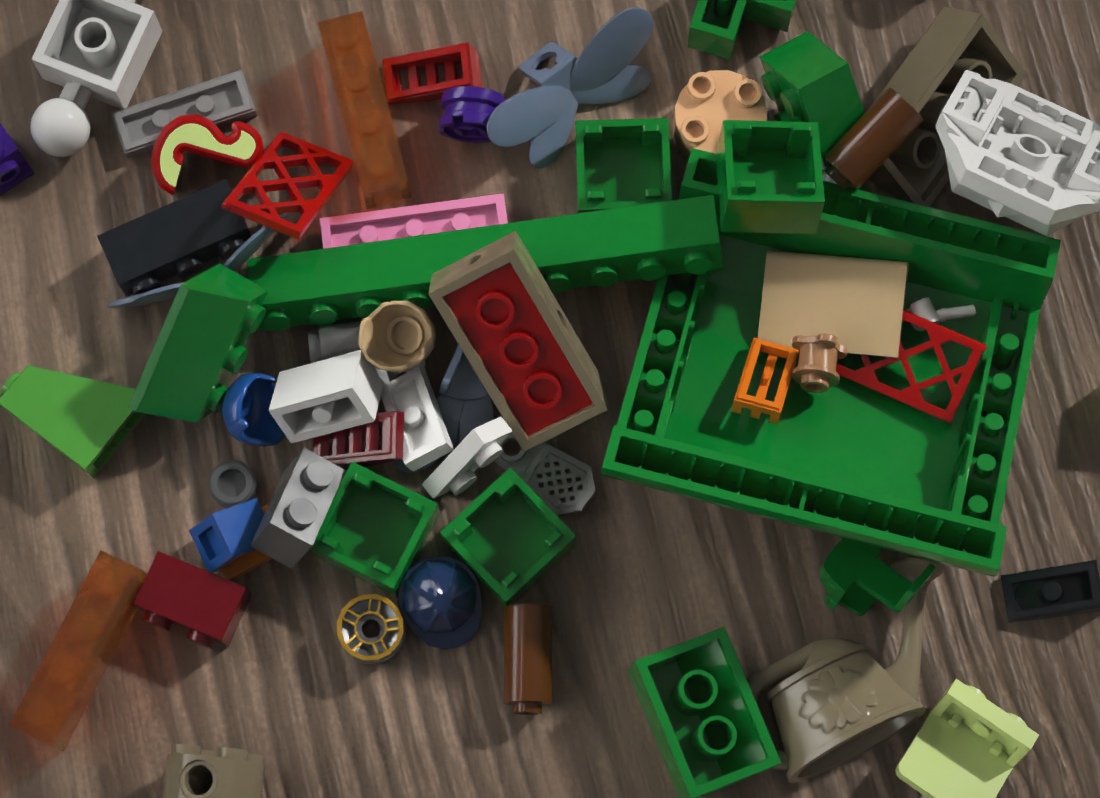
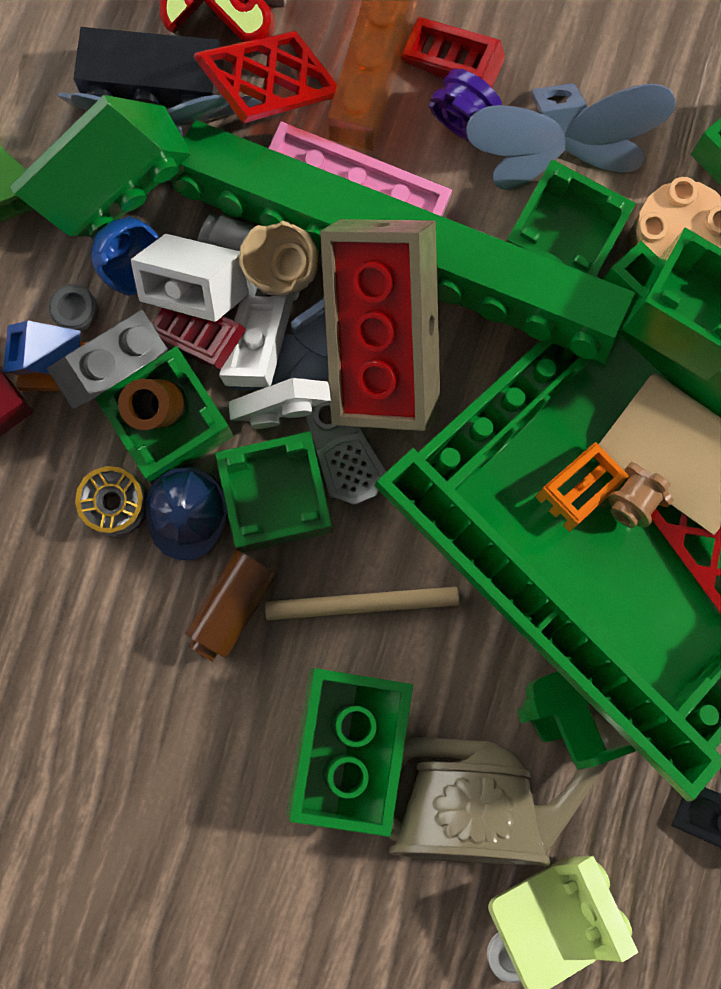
camera: 30 degrees right, 5 degrees up
(360, 536) = (138, 404): none -> reddish brown brick
(637, 590) = (361, 603): none -> tan bar

